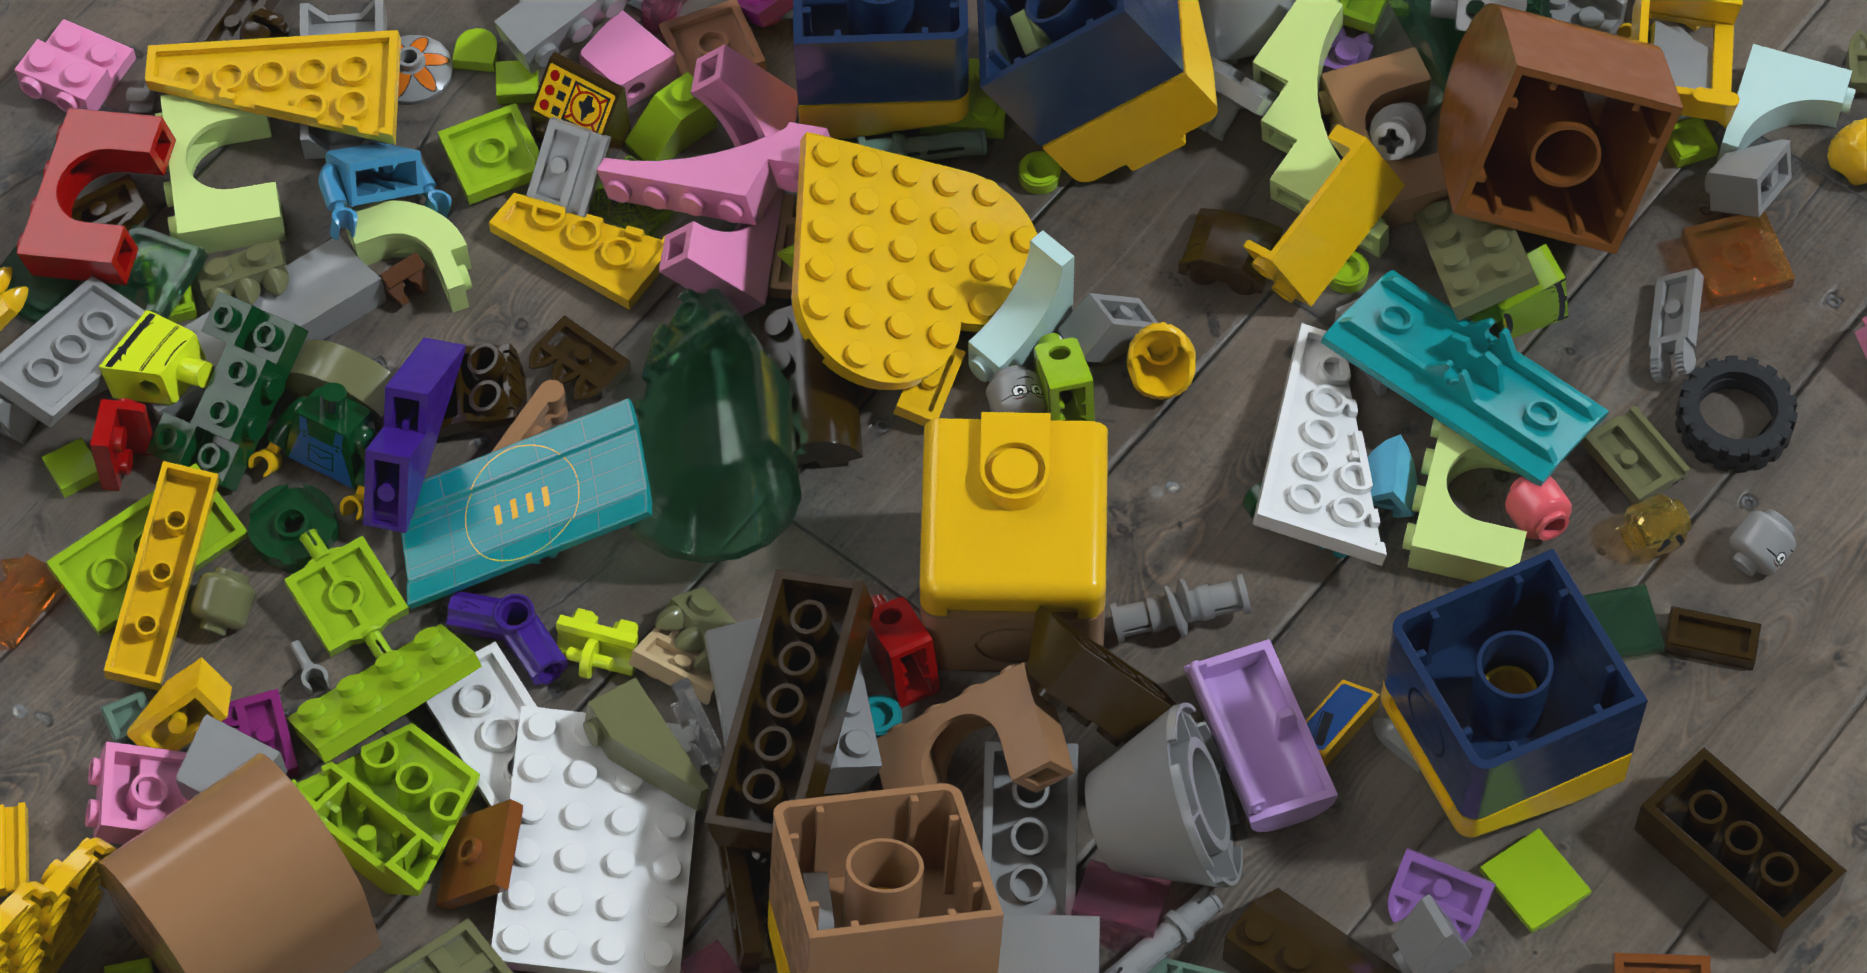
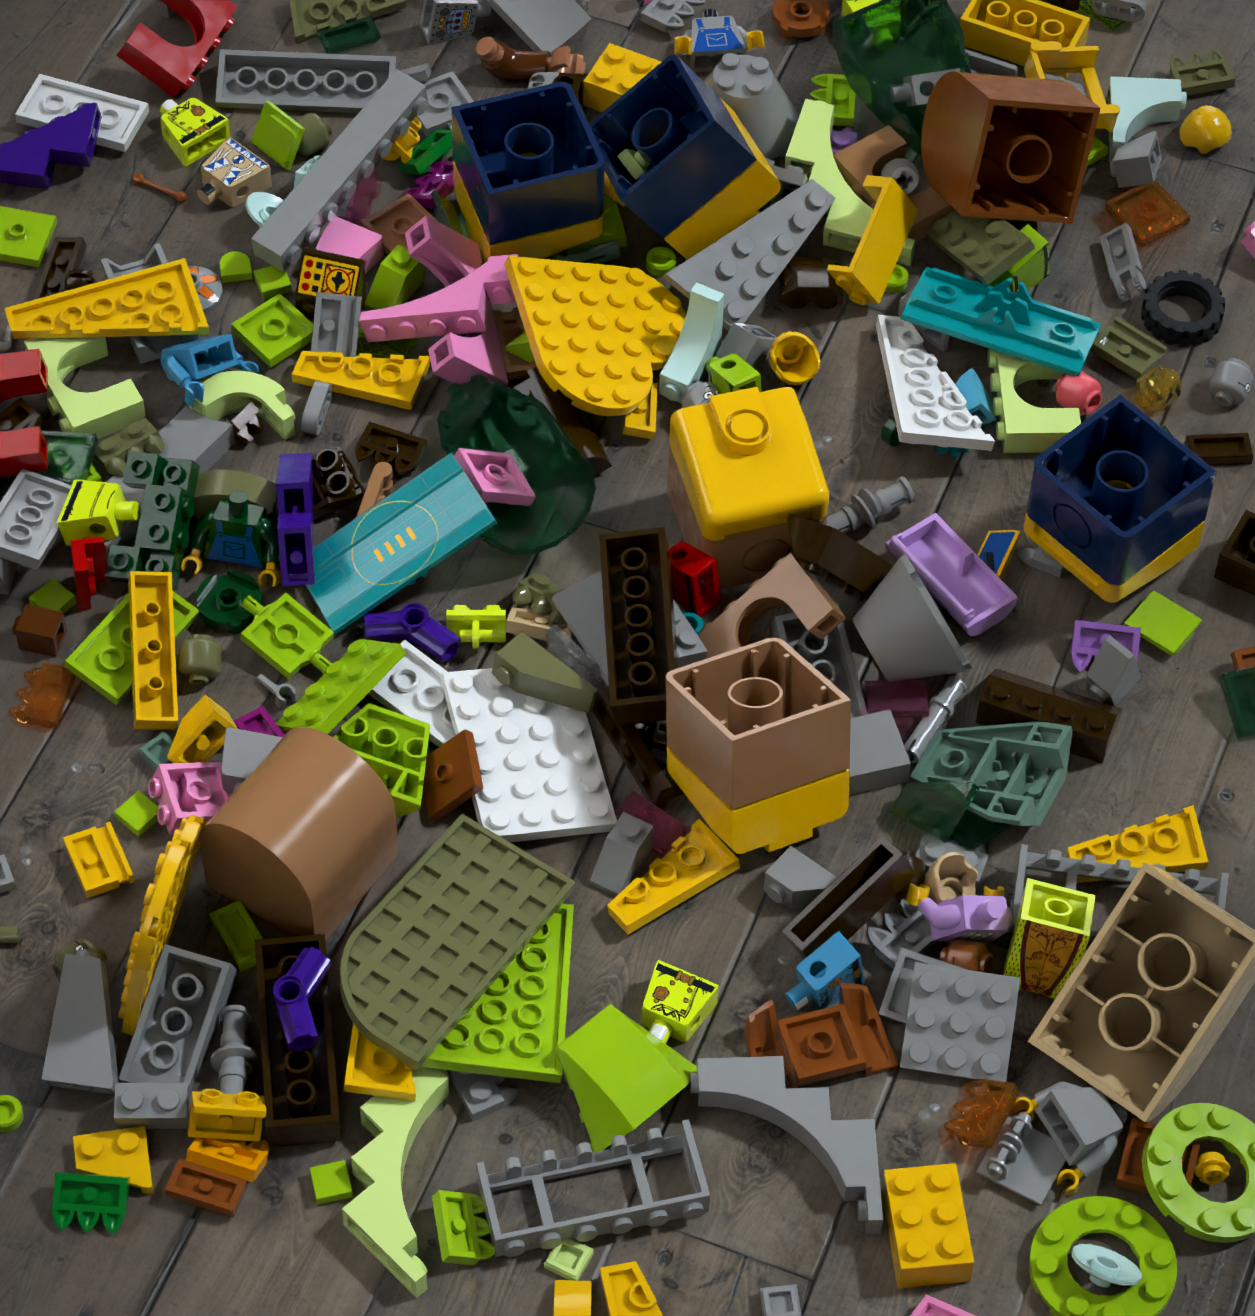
camera: 20 degrees left, 5 degrees down
(38, 507) = (40, 630): none -> reddish brown brick
(67, 797) = (137, 813): none -> lime tile
(505, 278) = (316, 407): none -> light grey beam
(687, 440) = (496, 476): none -> bright pink plate
(774, 47) = (449, 215): none -> piece
(1141, 207) = (755, 253): none -> light grey wing

